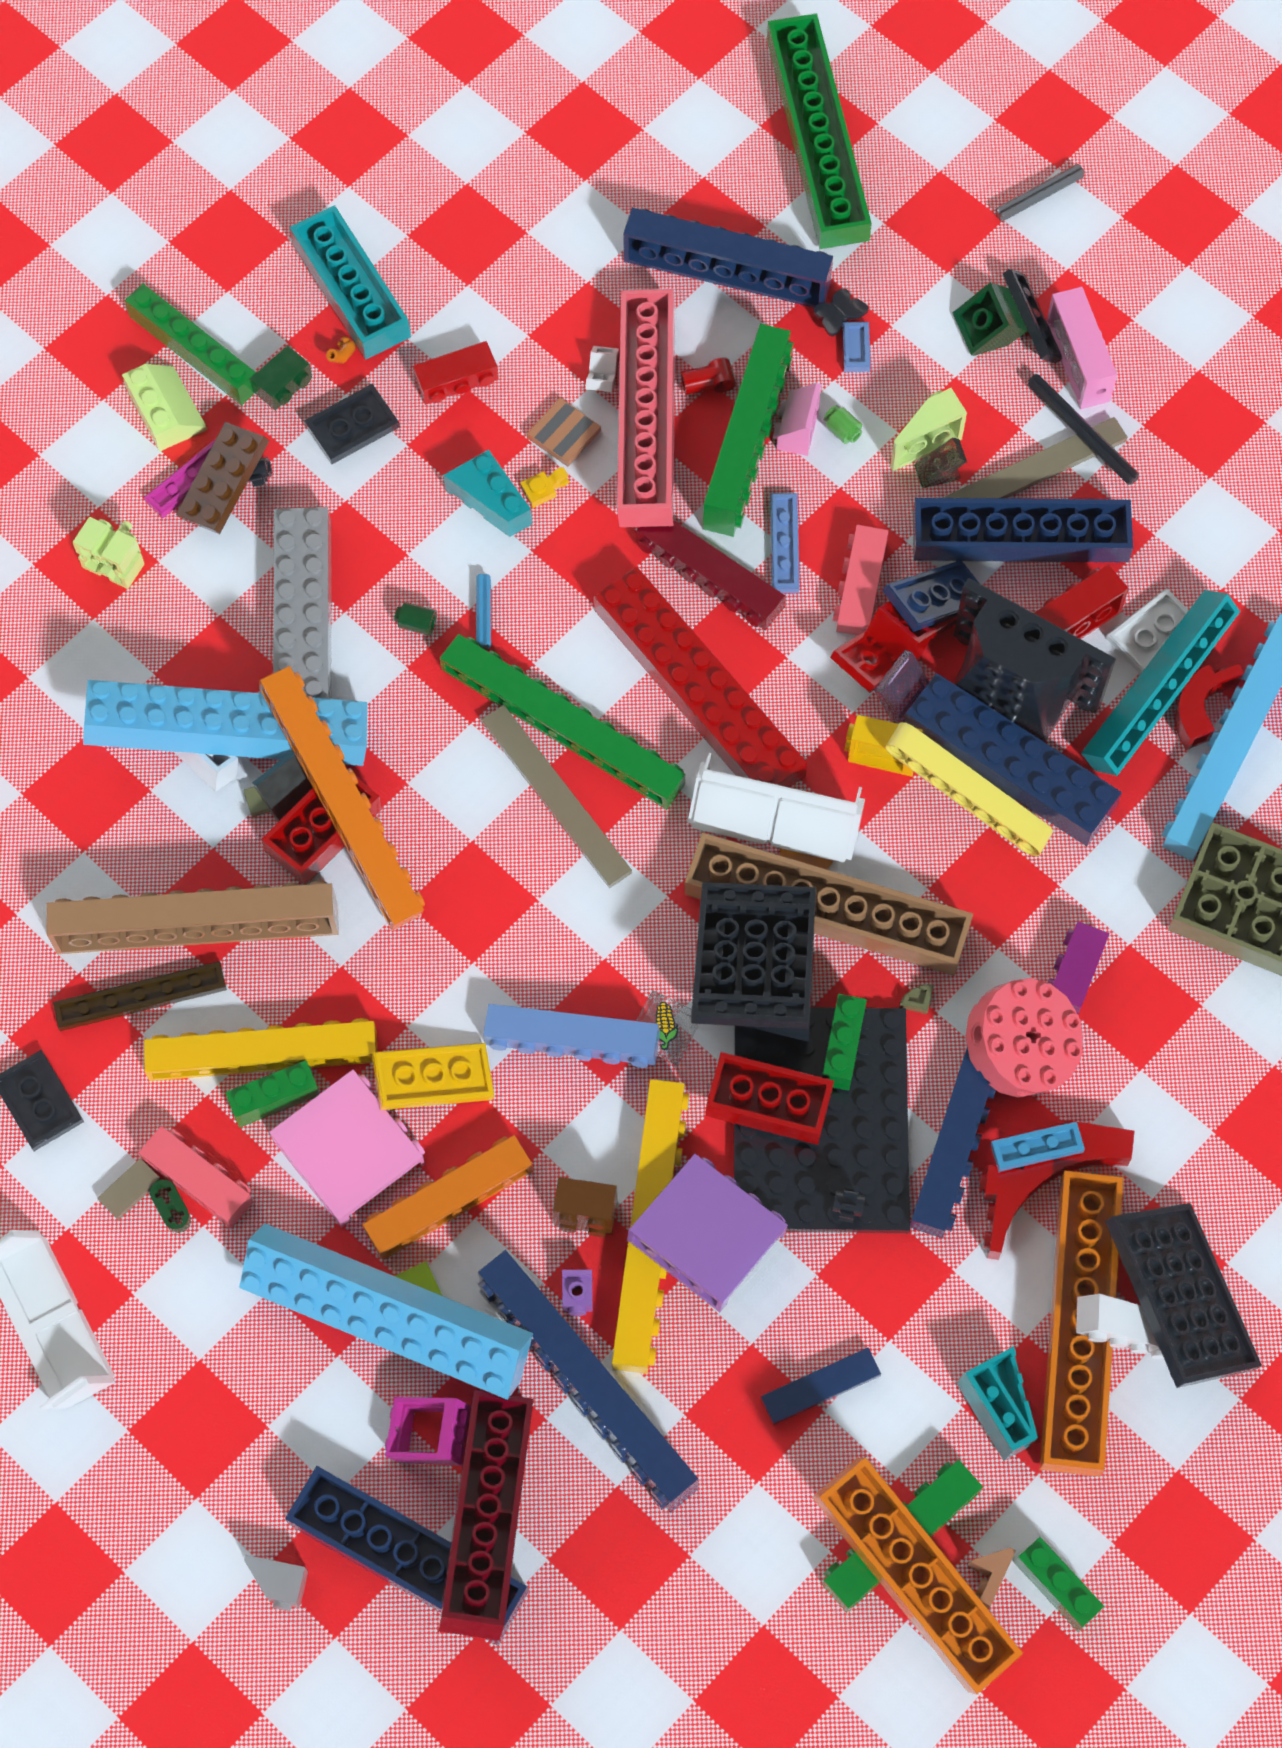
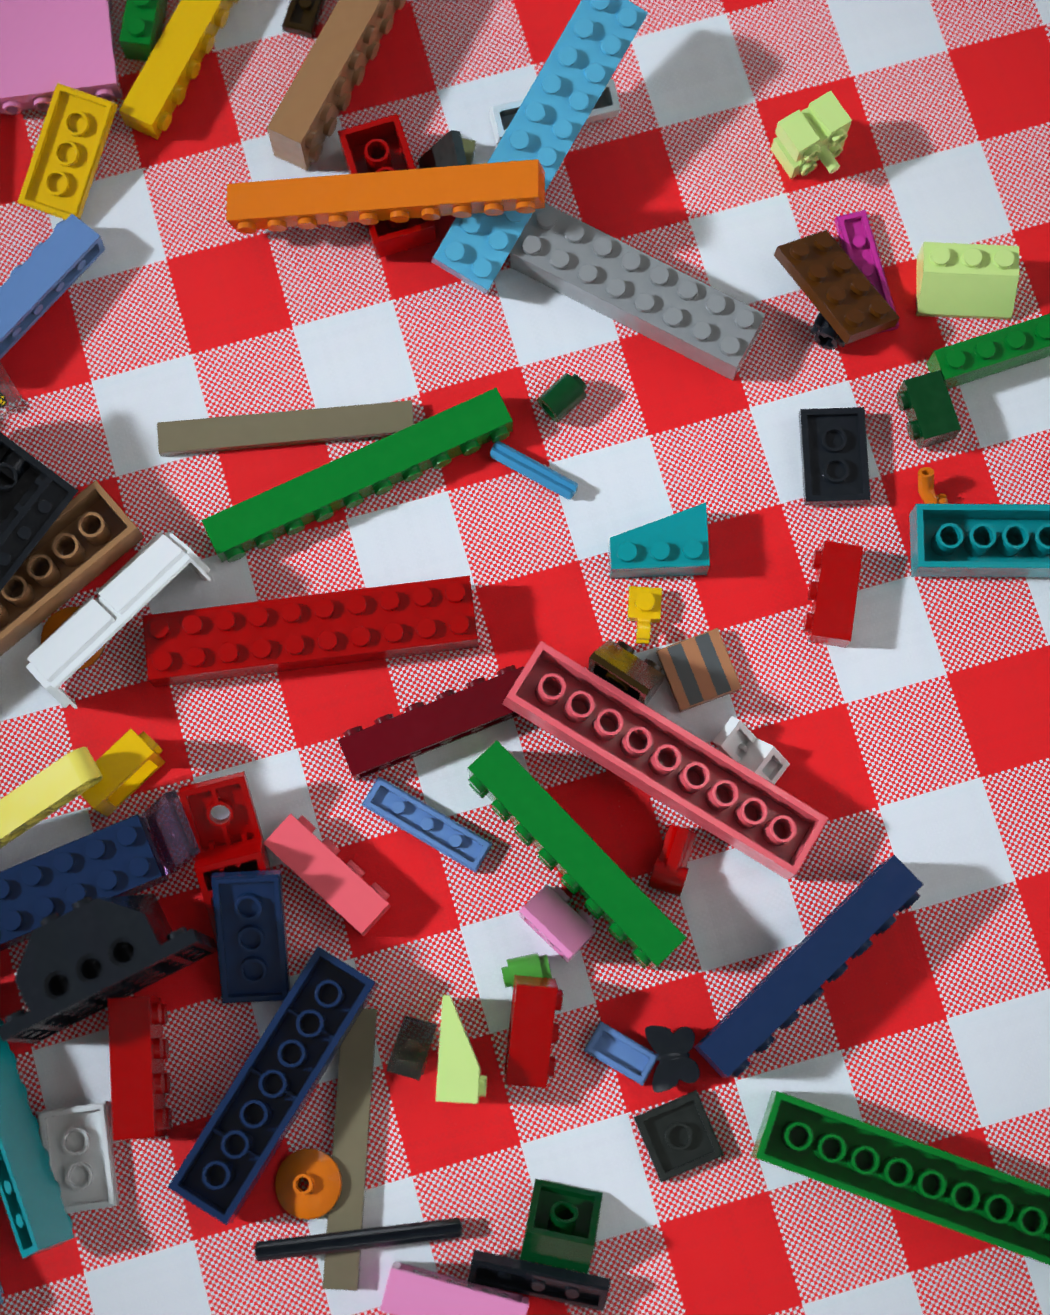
camera: 120 degrees right, 10 degrees up
(599, 463) = (625, 671): none -> dark brown slope
(881, 395) = (532, 1031): none -> red brick
(886, 287) = (678, 1136): none -> pearl dark grey tile
(1057, 483) = (323, 1179): none -> orange dish

